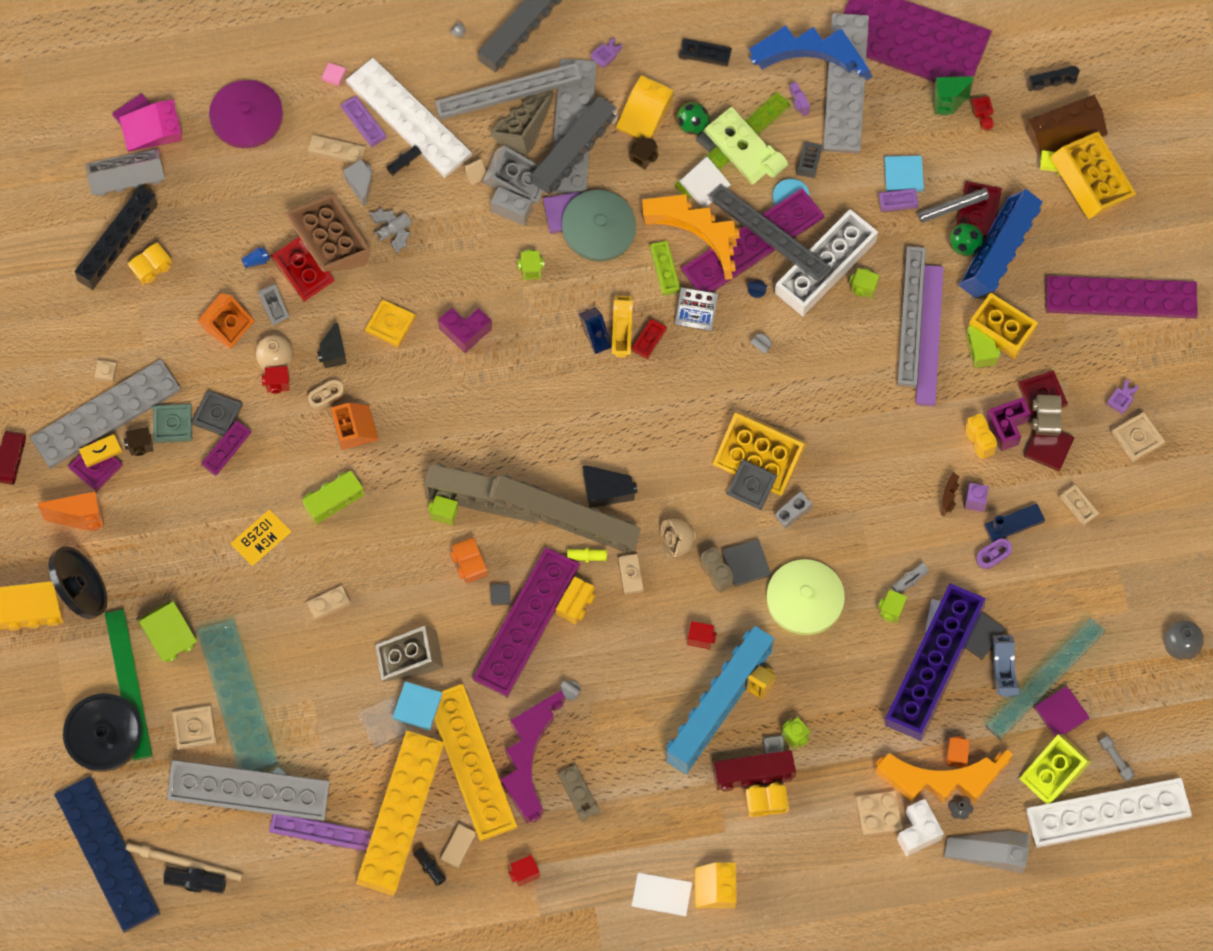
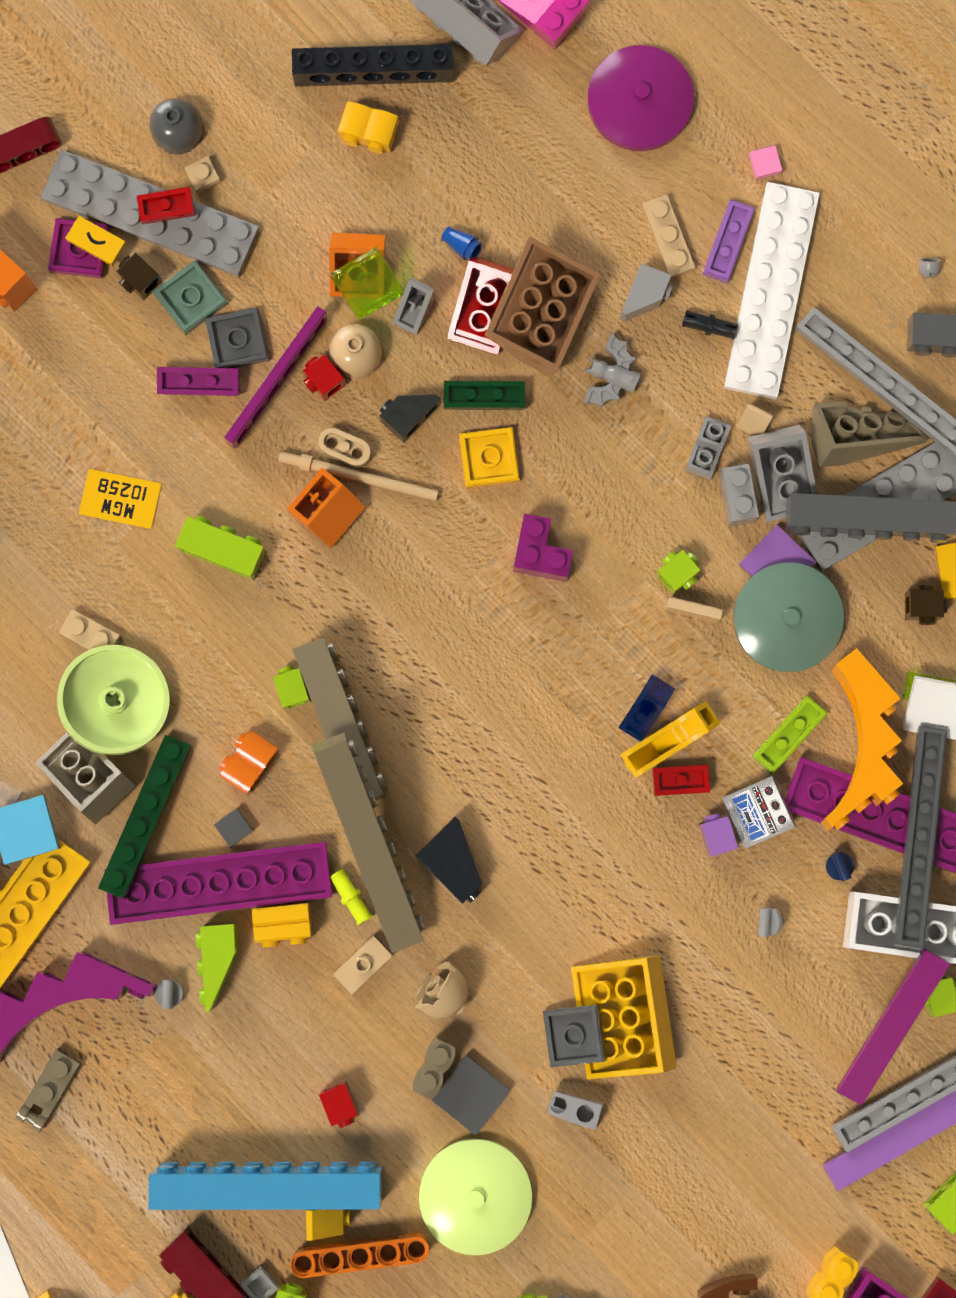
camera: 55 degrees right, 15 degrees up
(65, 366) = (176, 126): none -> dark grey cylinder
(111, 397) = (165, 205): none -> red plate
(242, 318) = (367, 283): none -> clear neon green tile
(257, 405) = (276, 377): none -> magenta tile
(319, 421) = (307, 463): none -> tan bar
(353, 301) = (484, 395): none -> dark green plate
(378, 609) = (113, 699): none -> yellowish green dish
(459, 636) = (144, 817): none -> dark green plate
(472, 206) = (708, 448): none -> light grey slope
(558, 270) = (693, 609): none -> tan tile
(567, 646) = (219, 952): none -> lime slope
(694, 338) = (718, 835): none -> medium lavender brick
(798, 669) = (349, 1264): none -> orange beam
(863, 315) = (893, 1026): none -> magenta tile

